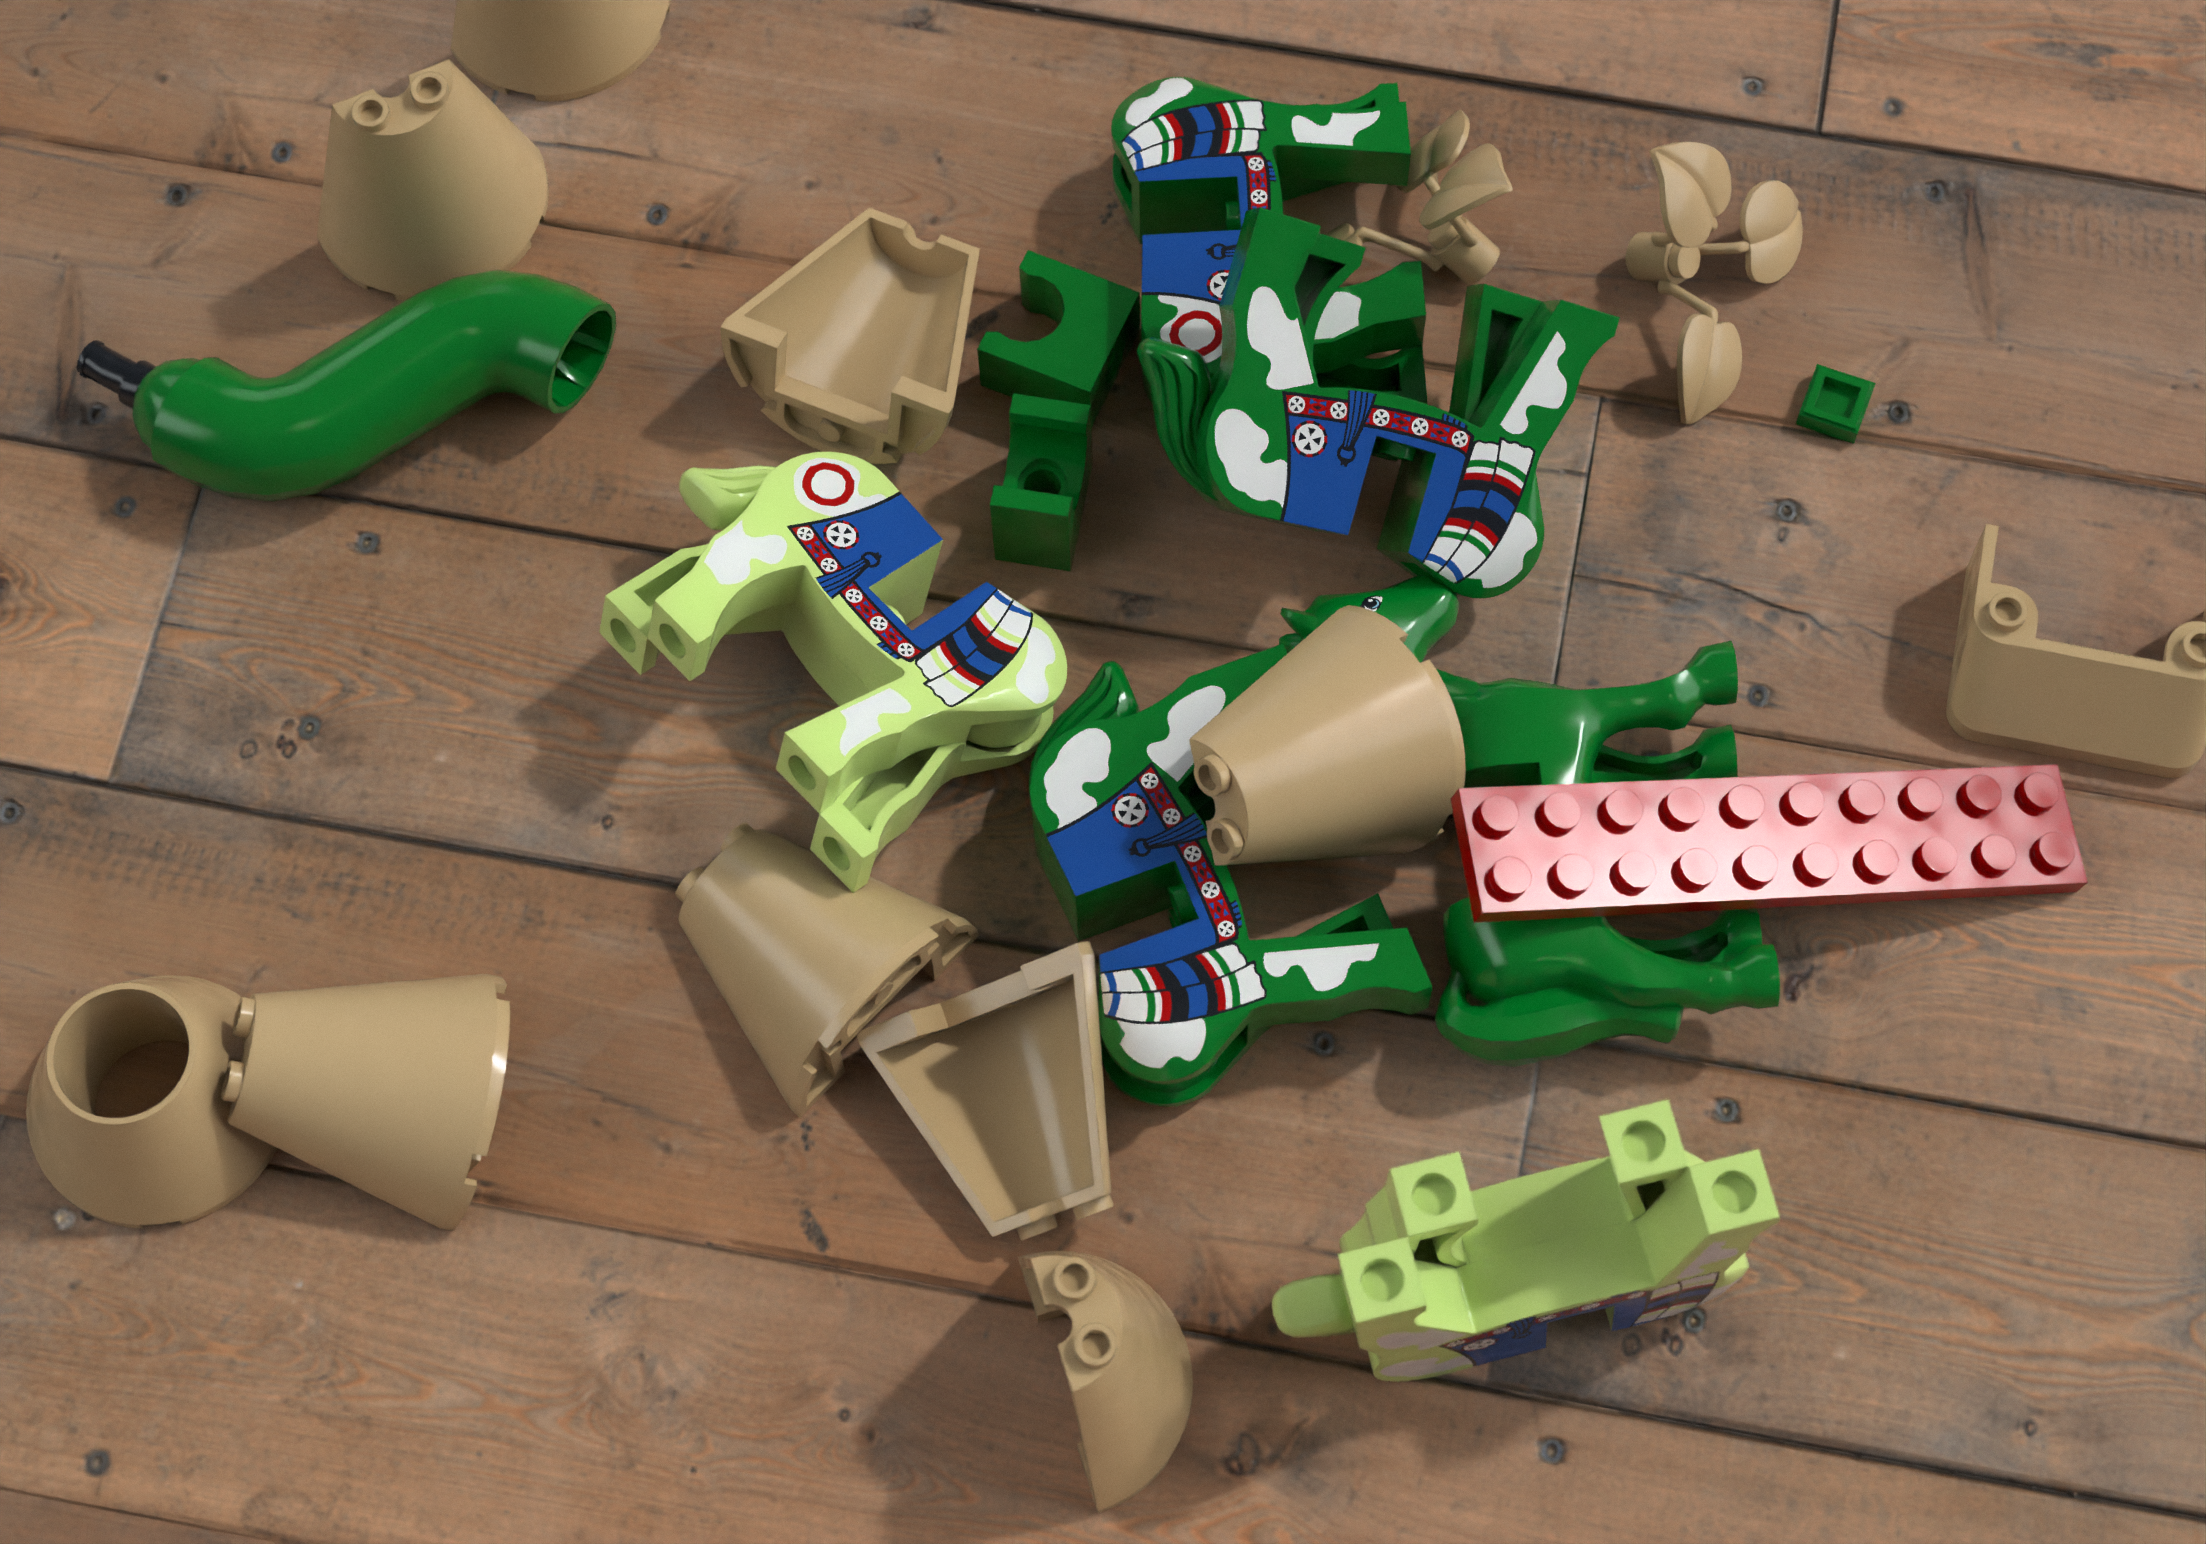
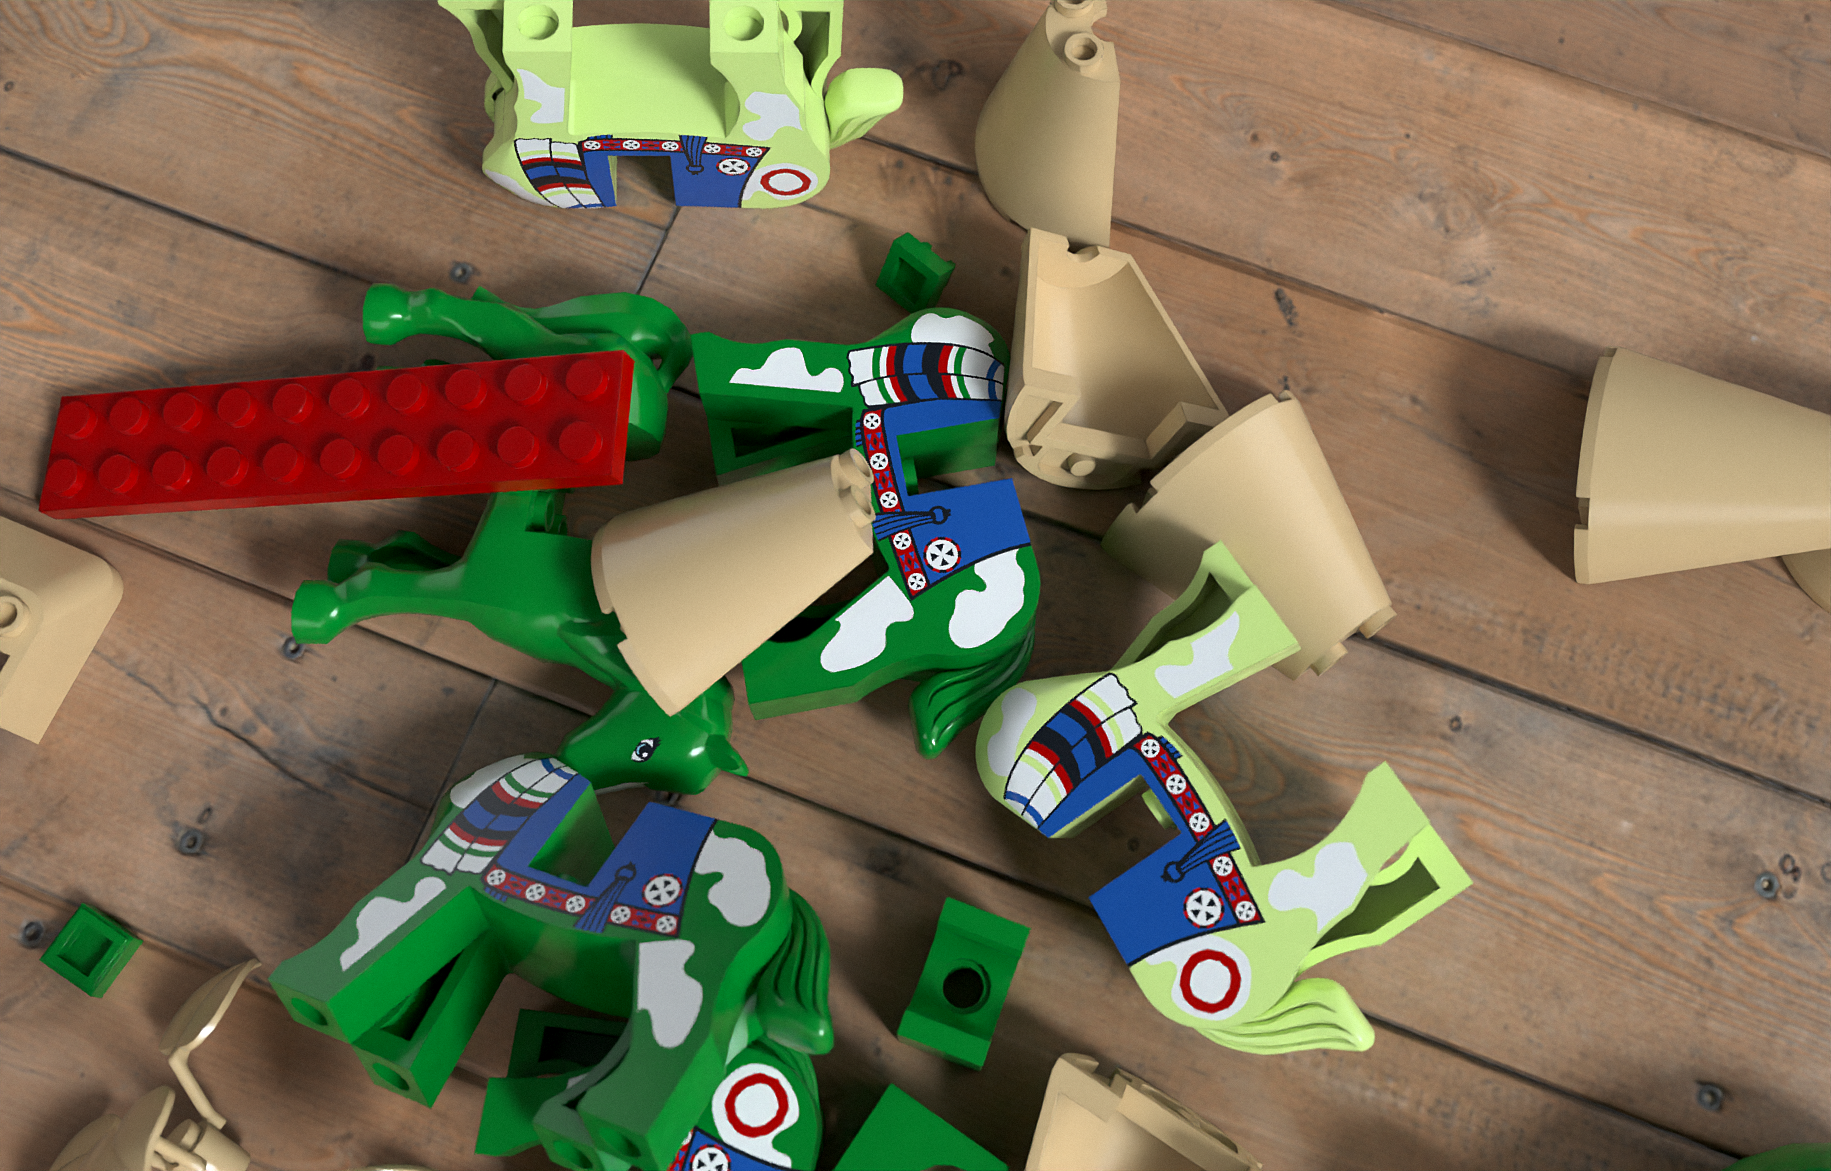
camera: 170 degrees left, 5 degrees up
(1225, 1169) = (914, 274): none -> green tile

